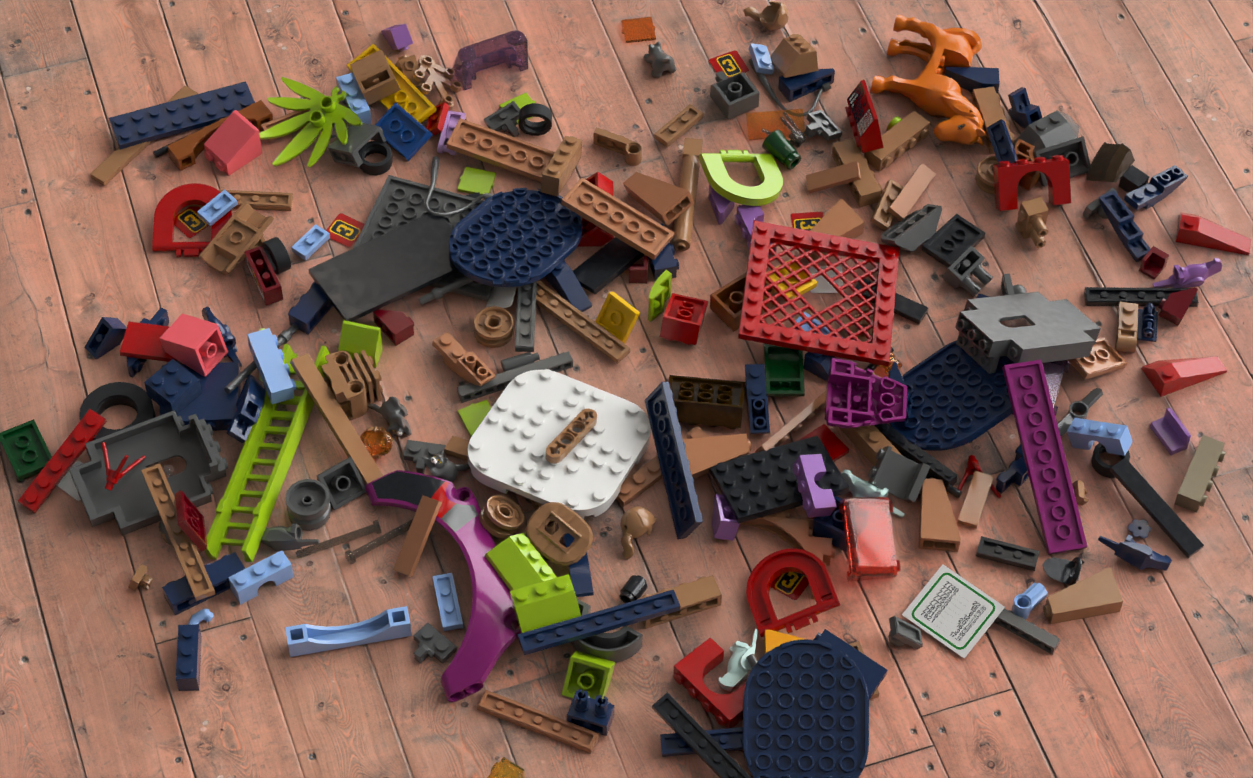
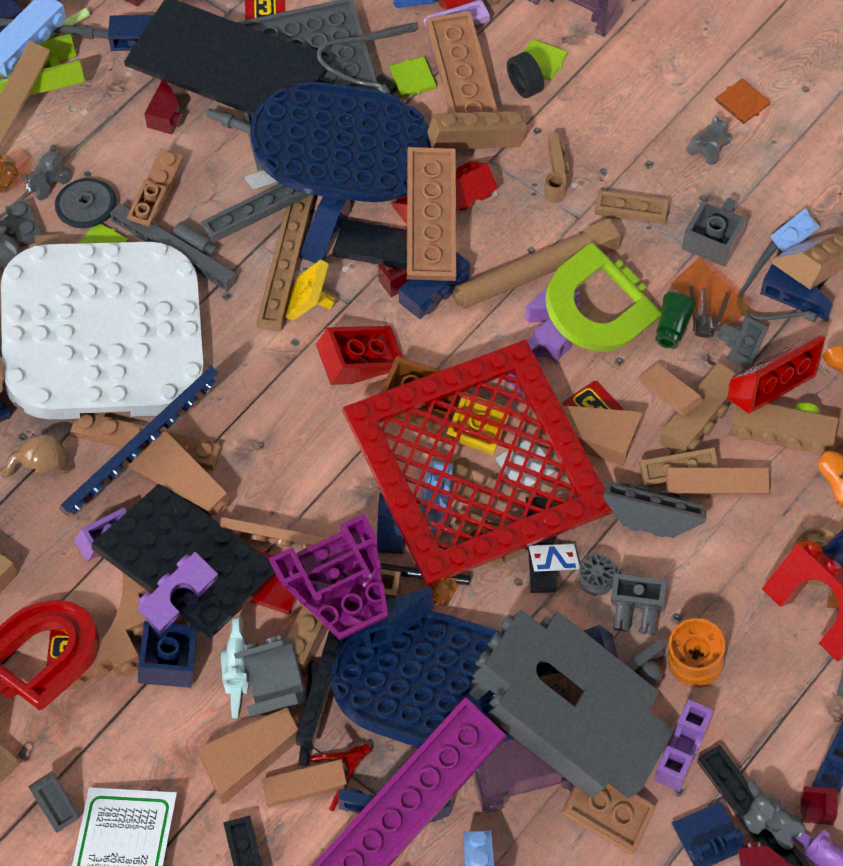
camera: 60 degrees right, 5 degrees up
(352, 382) = (57, 111): medium nougat piece -> none
(361, 337) = (112, 95): lime slope -> none
(448, 409) = (98, 198): none -> dark grey wheel
(493, 327) = (221, 189): medium nougat wheel -> none
(504, 119) = (505, 48): dark grey hinge -> none
(569, 434) = (104, 324): medium nougat beam -> none
(658, 197) = (500, 239): nougat slope -> none
(659, 294) = (365, 309): lime slope -> none
(708, 401) = (258, 433): dark brown slope -> none
(729, 63) = (764, 209): sticker -> none
(757, 399) = (292, 485): dark blue slope -> none
(783, 371) = (350, 489): dark green slope -> none
(869, 538) = (150, 687): clear red windscreen -> none
(907, 297) = (554, 557): none -> white sticker
(933, 285) = (596, 575): none -> dark grey wheel
(953, 240) = (682, 562): black plate -> none
(1024, 261) = (696, 638): none -> orange wheel
(1032, 221) = (769, 633): medium nougat brick -> none
(1069, 288) = (684, 745): none -> medium lavender arch
(1079, 406) = (531, 835): dark grey piece -> none
(1127, 327) = (689, 823): medium nougat plate -> none
(1148, 284) = (769, 814): none -> dark grey animal

